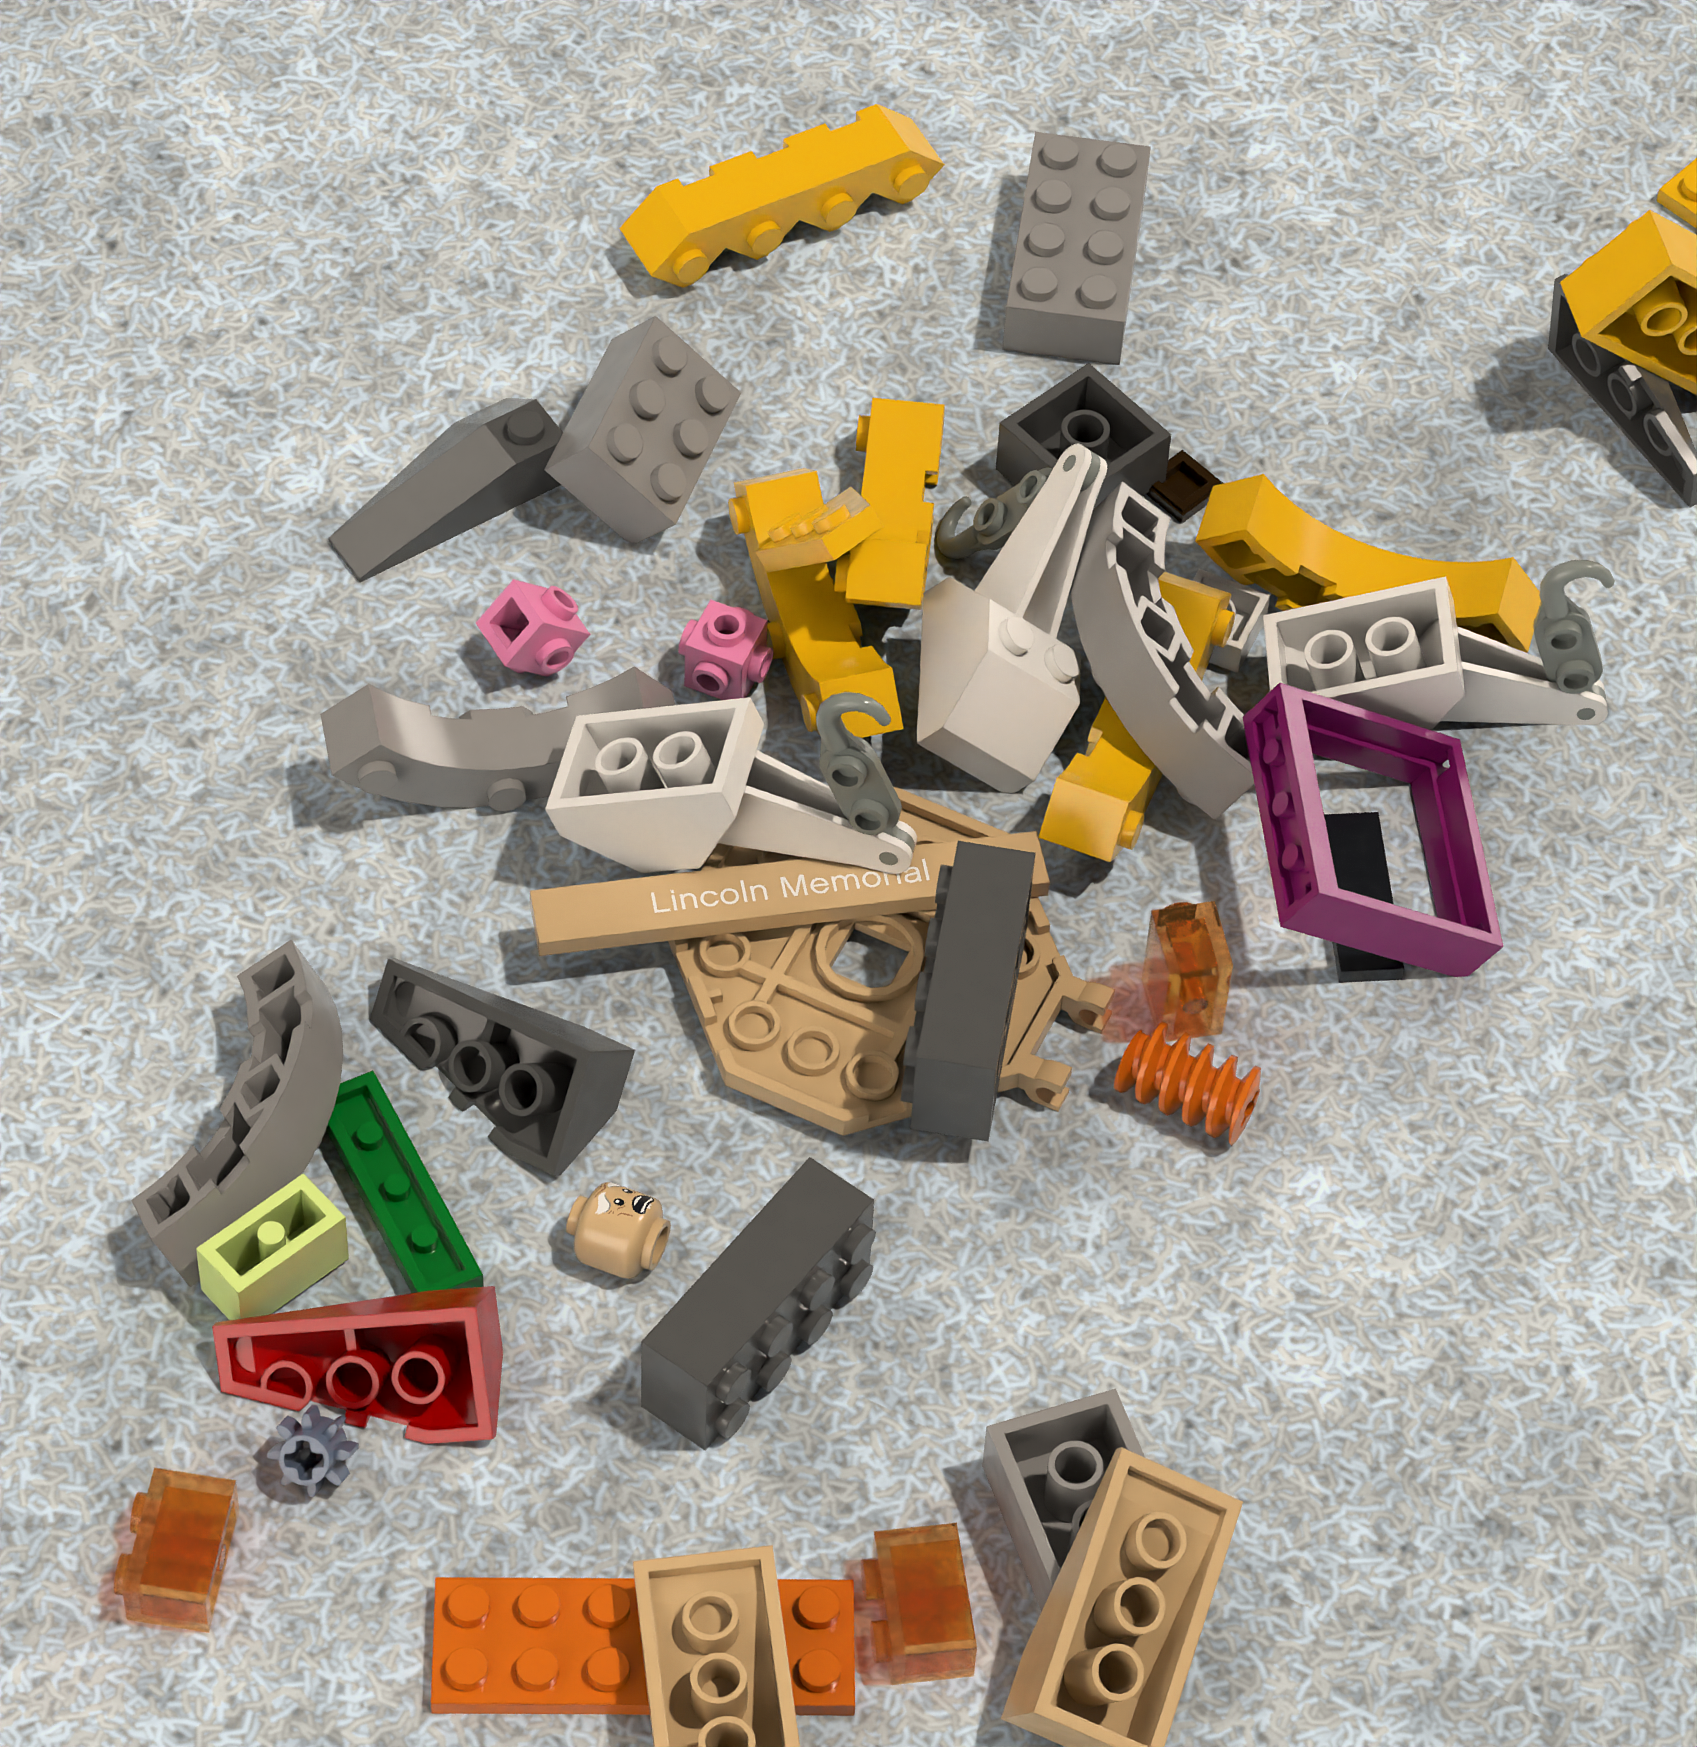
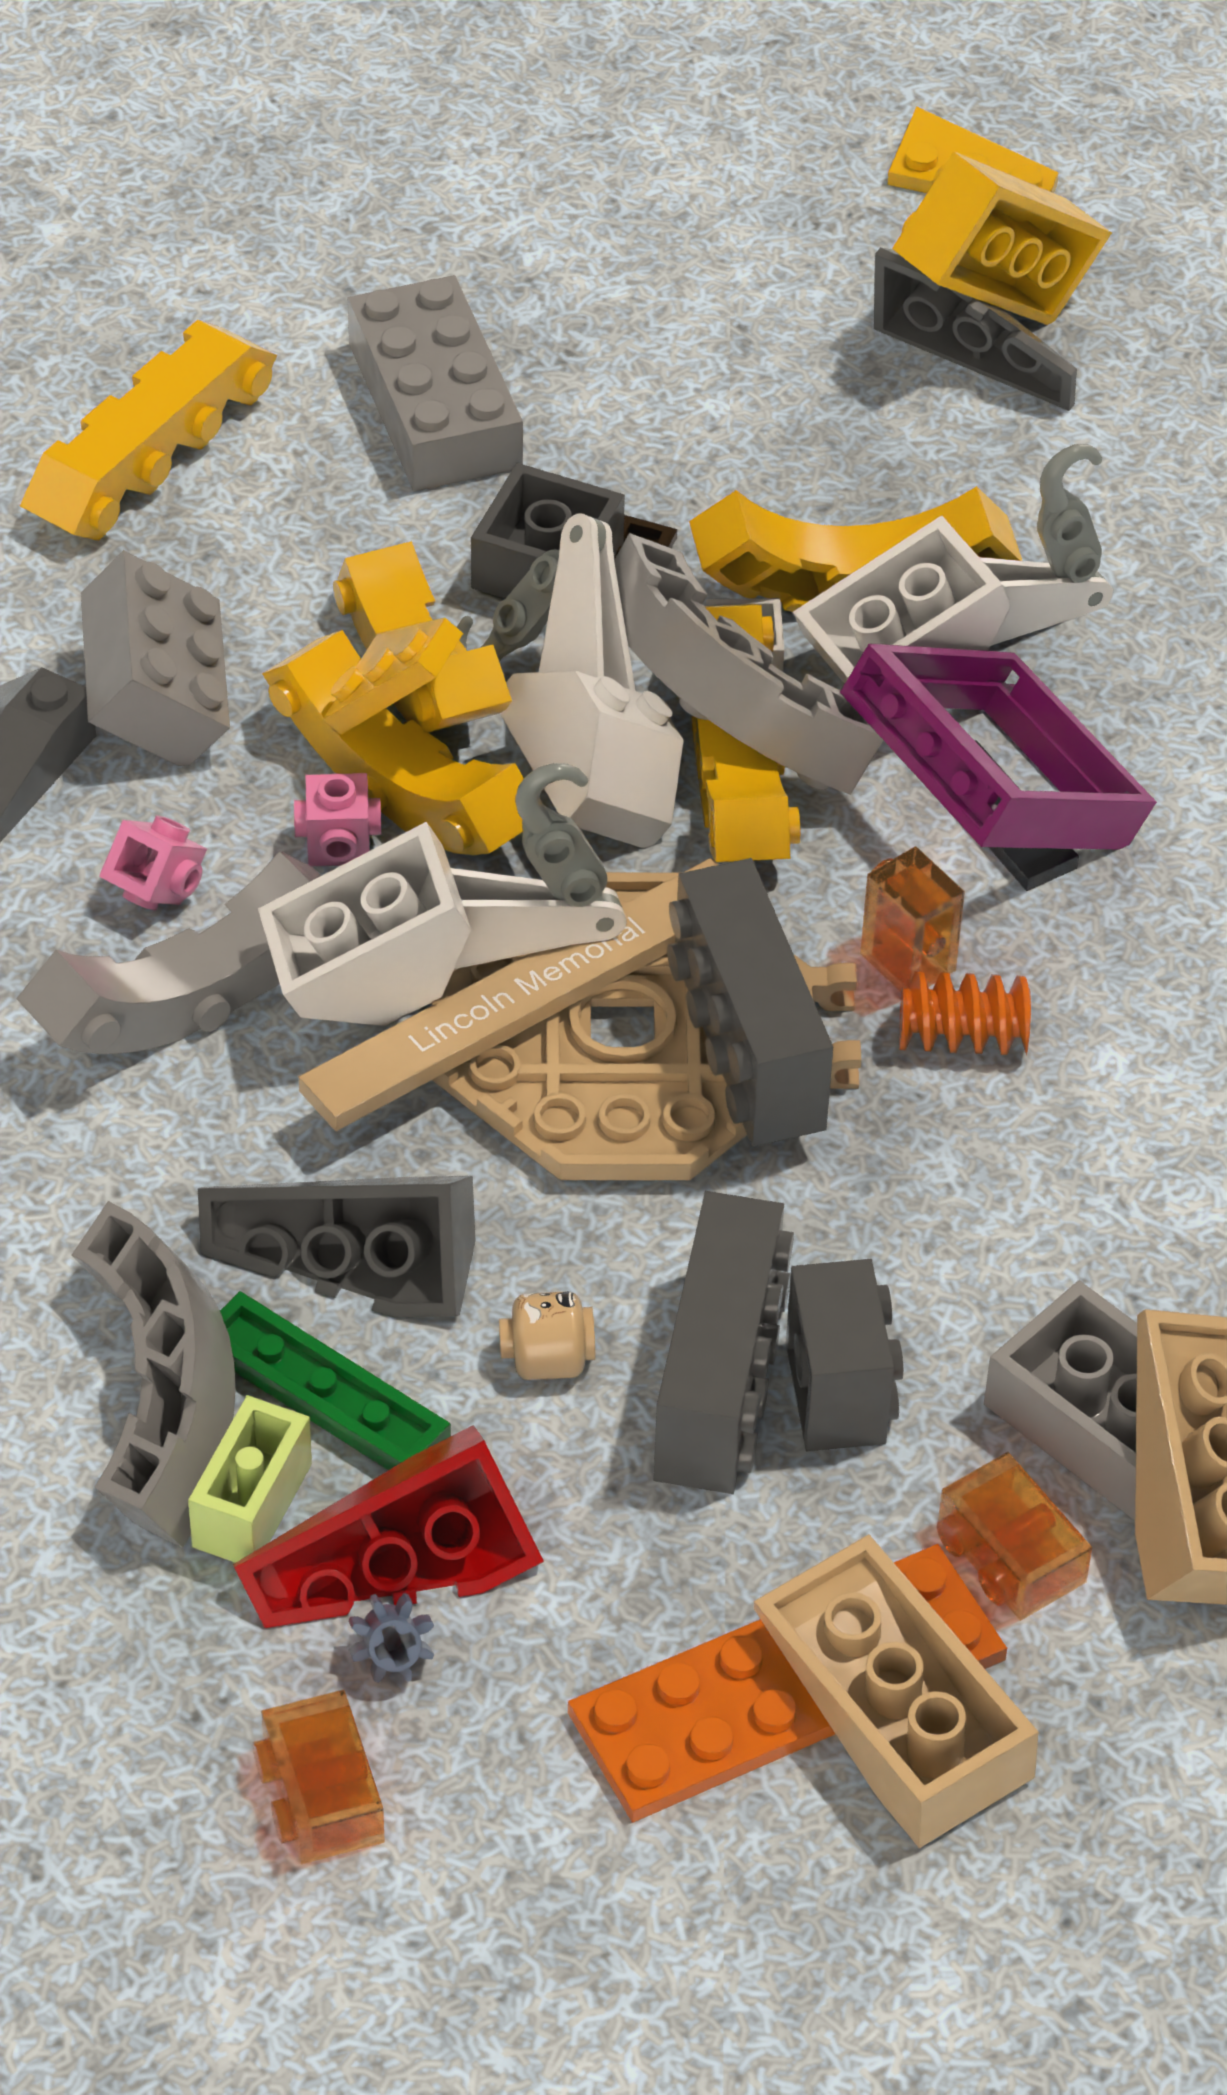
camera: 25 degrees left, 5 degrees down
(860, 1364) = (842, 1354): none -> dark grey brick

